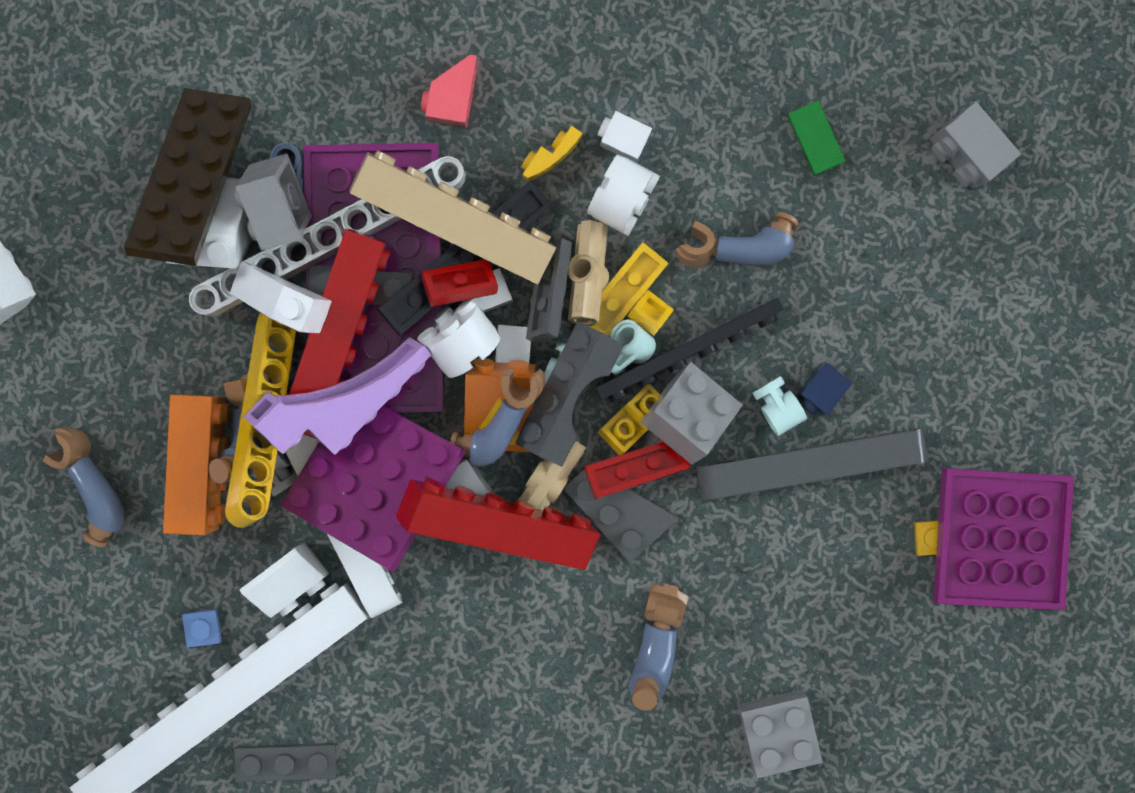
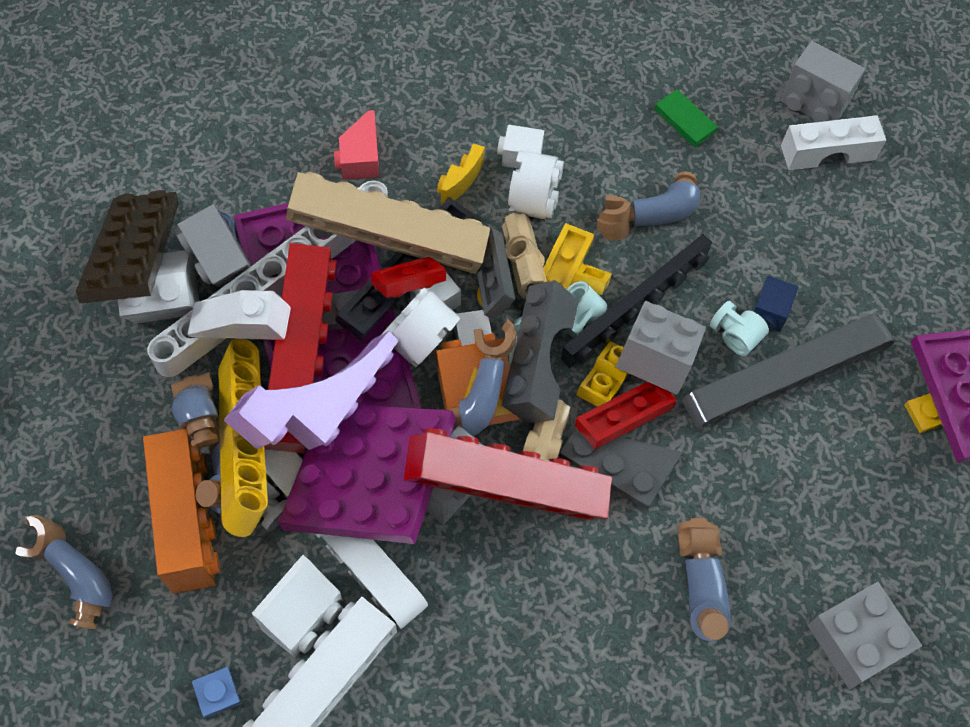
camera: 20 degrees left, 25 degrees down
(222, 366) = (195, 409): none -> piece
(960, 215) = (856, 138): none -> white arch

